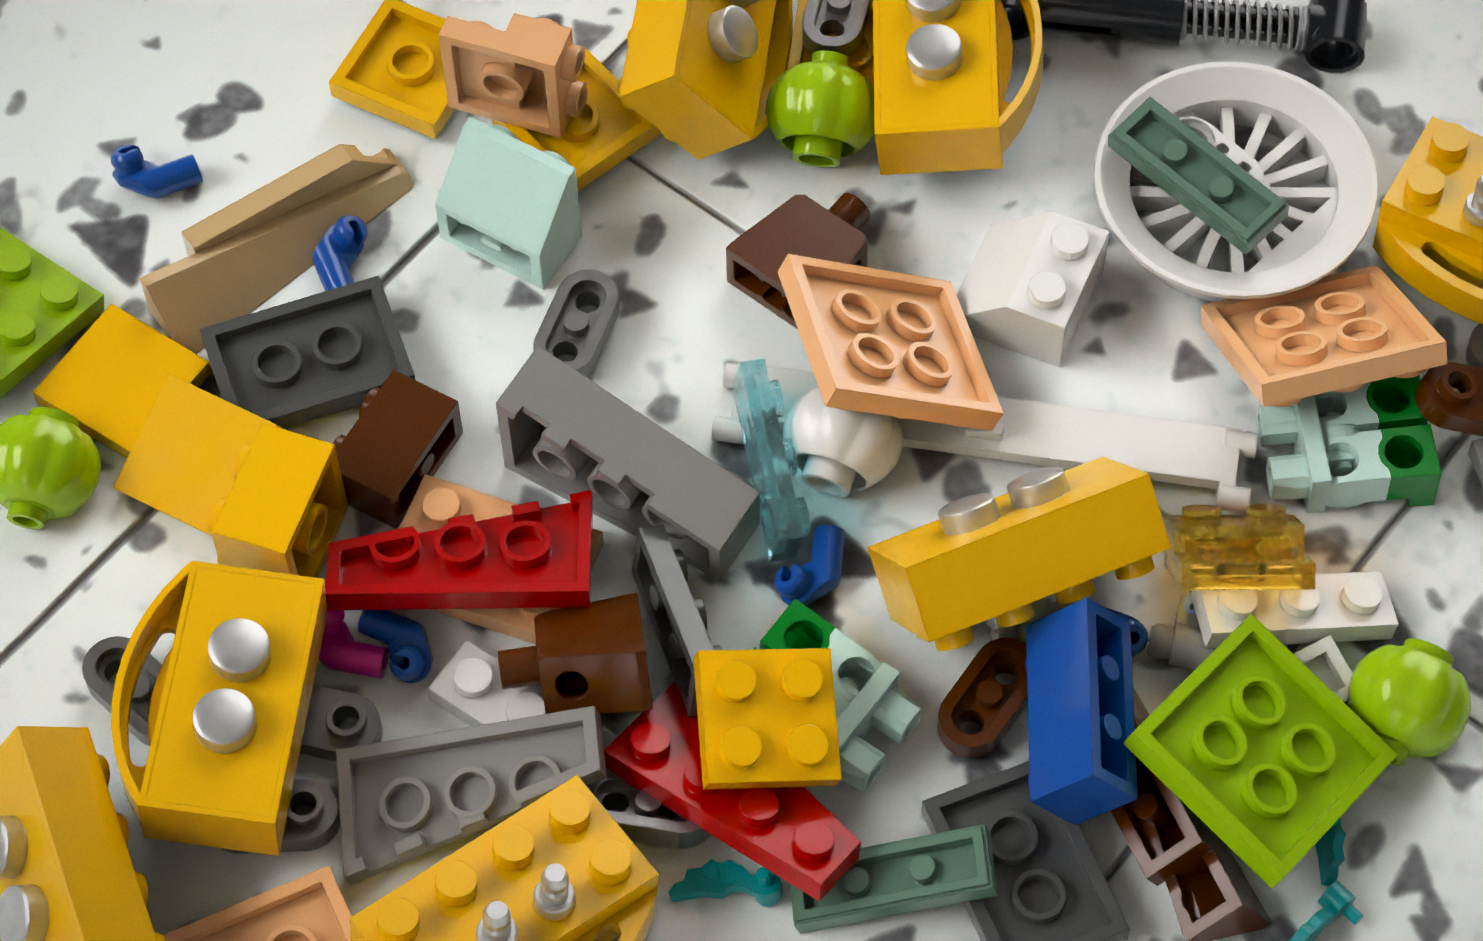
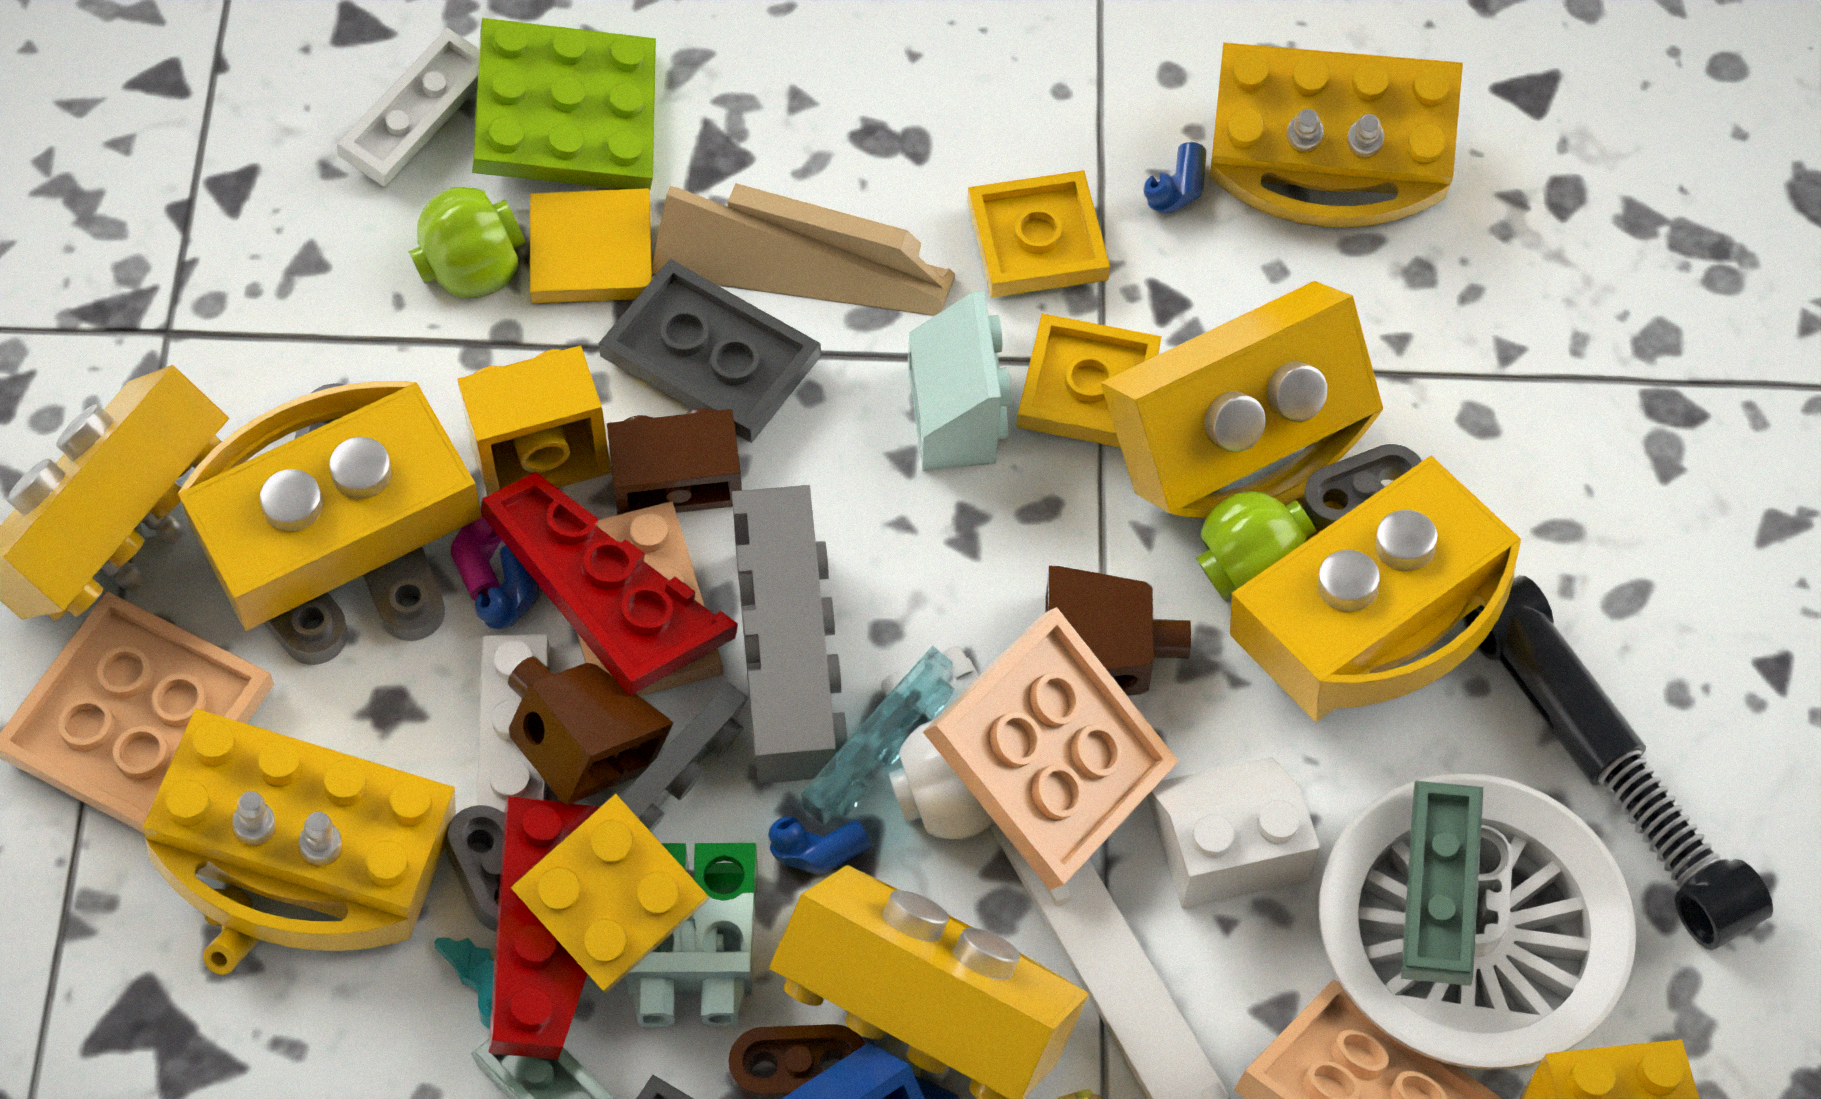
camera: 50 degrees right, 0 degrees up
(151, 179) = (785, 137): blue arm -> none
(187, 452) = (561, 316): yellow tile -> none
(339, 251) = (825, 304): blue arm -> none
(449, 784) = (404, 711): light grey wing -> none
(514, 74) = (1067, 296): light nougat plate -> none
(574, 331) = (893, 511): flat silver plate -> none

